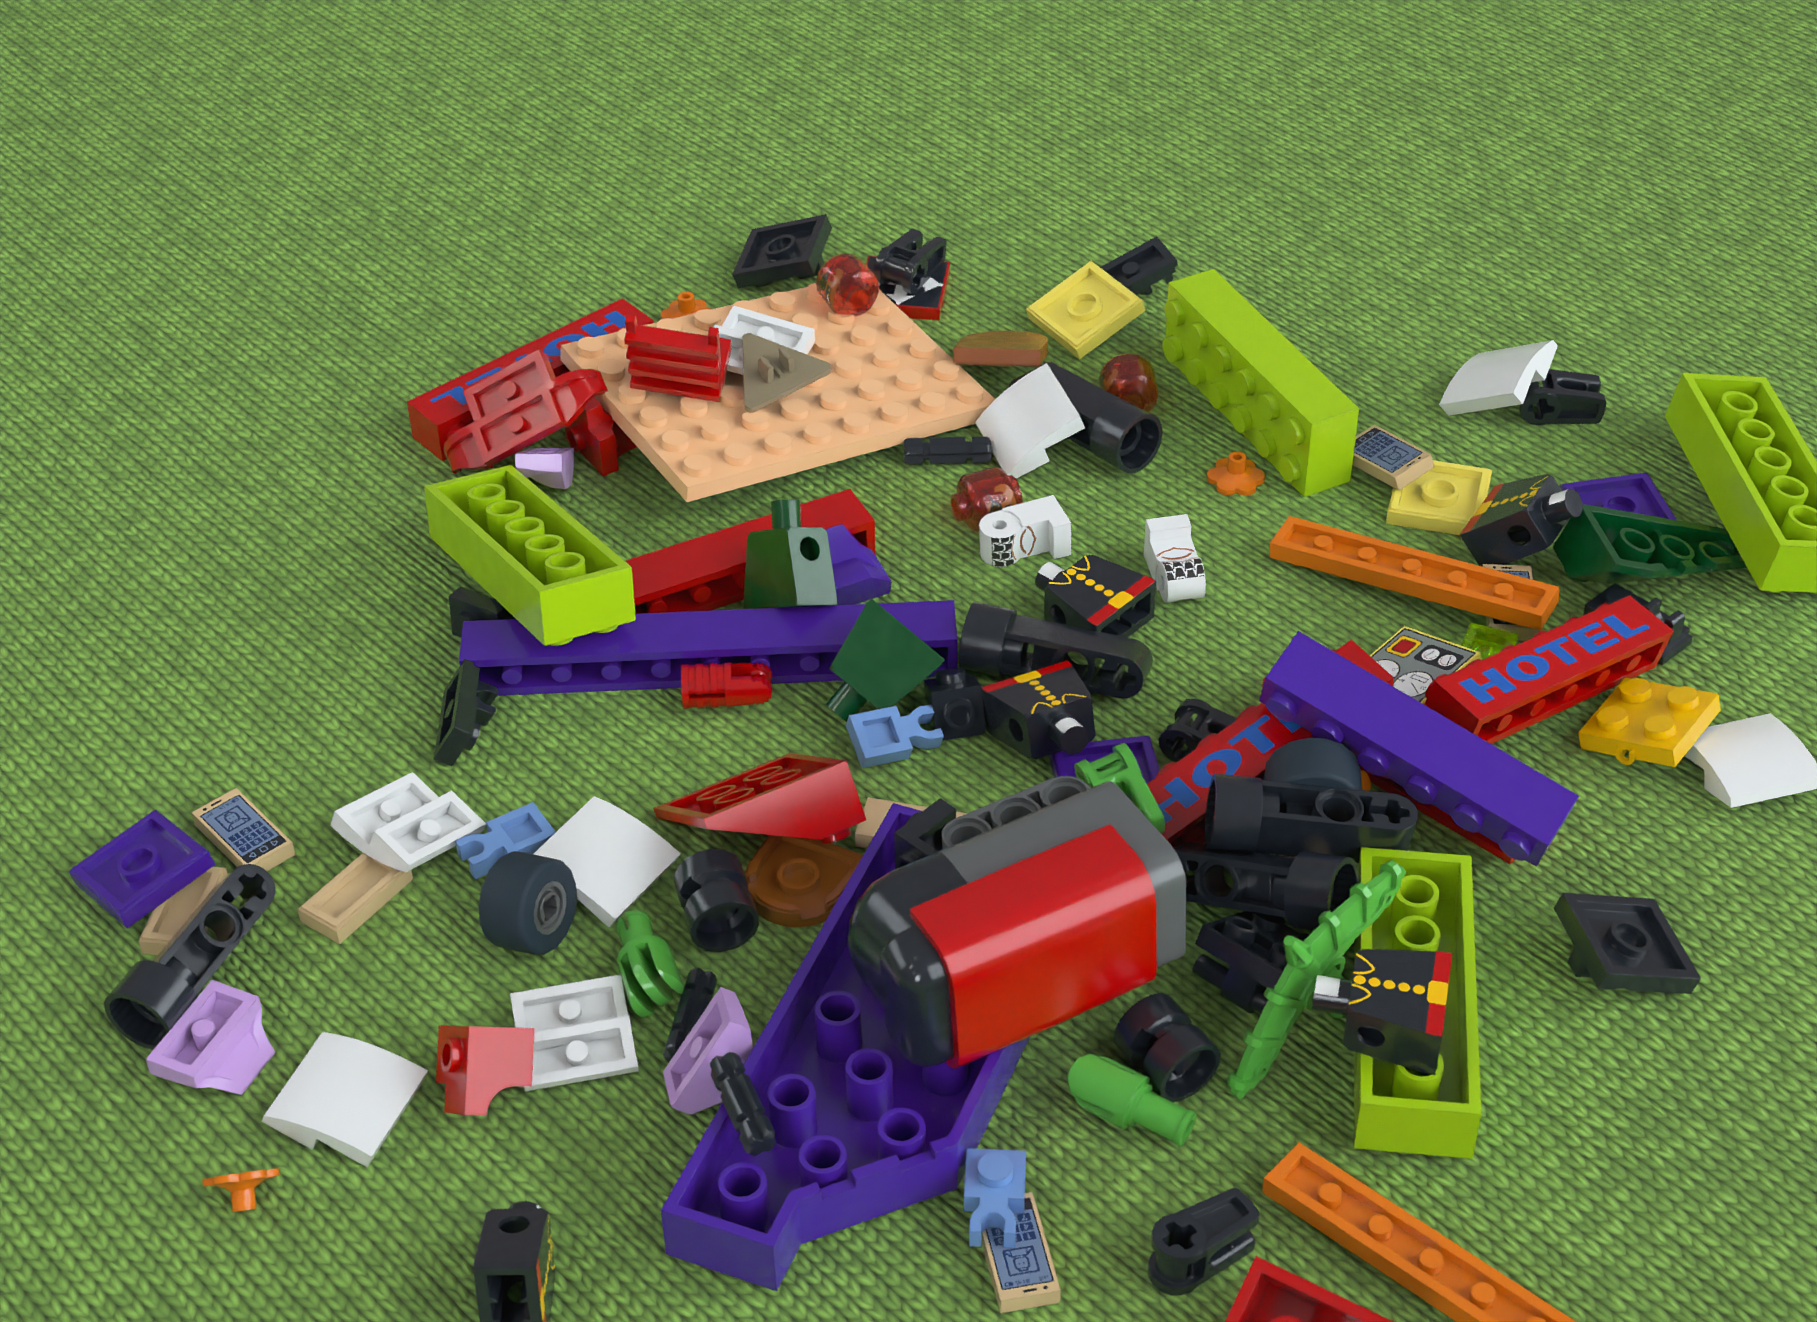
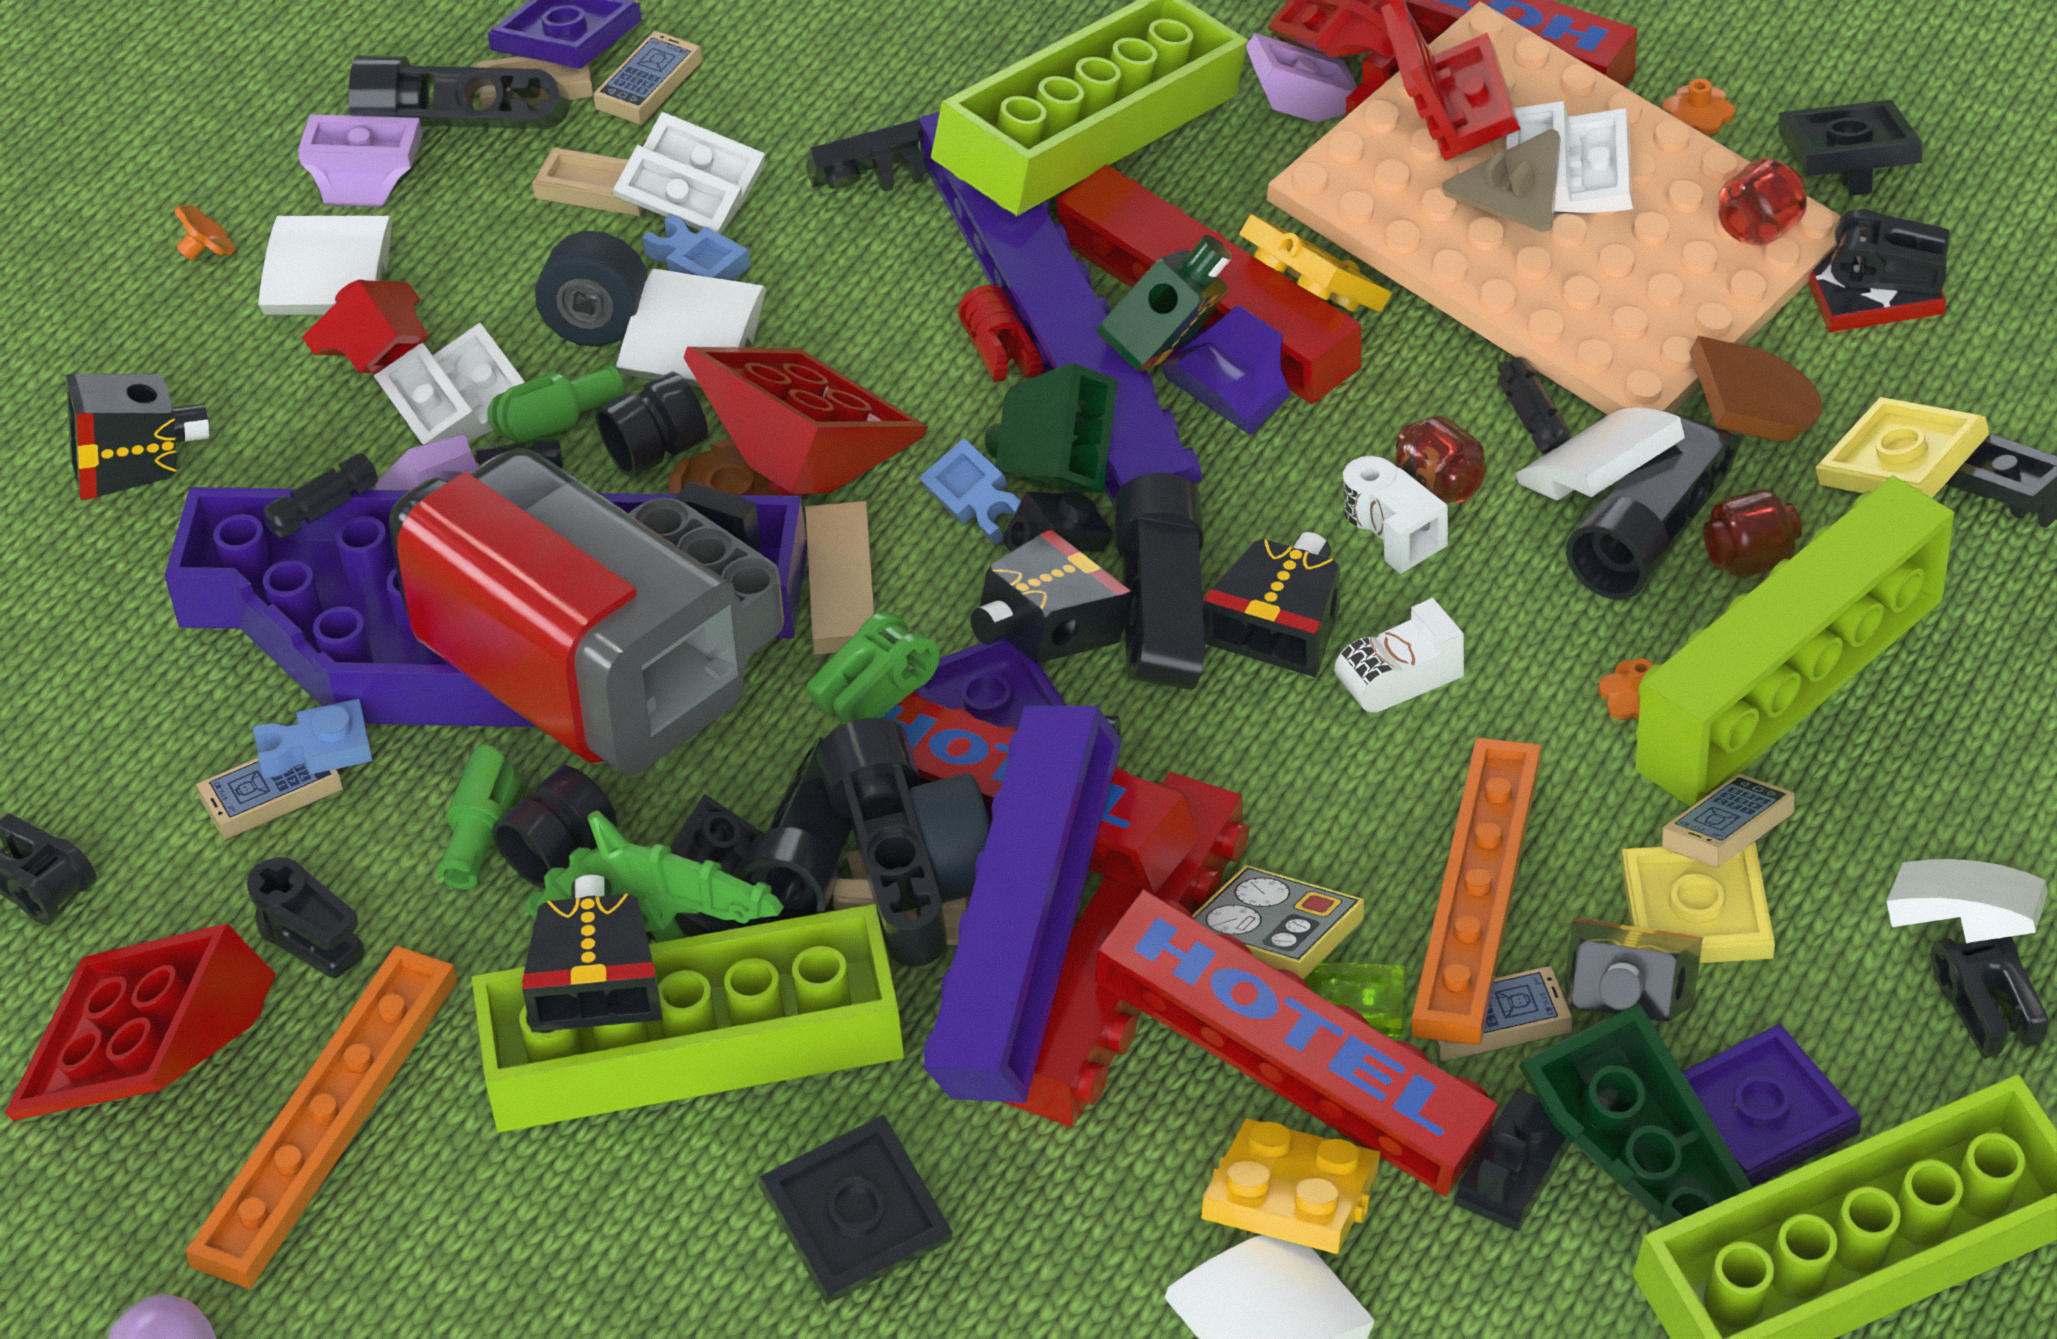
camera: 75 degrees right, 5 degrees up
(756, 500) = (1314, 267): none -> yellow plate

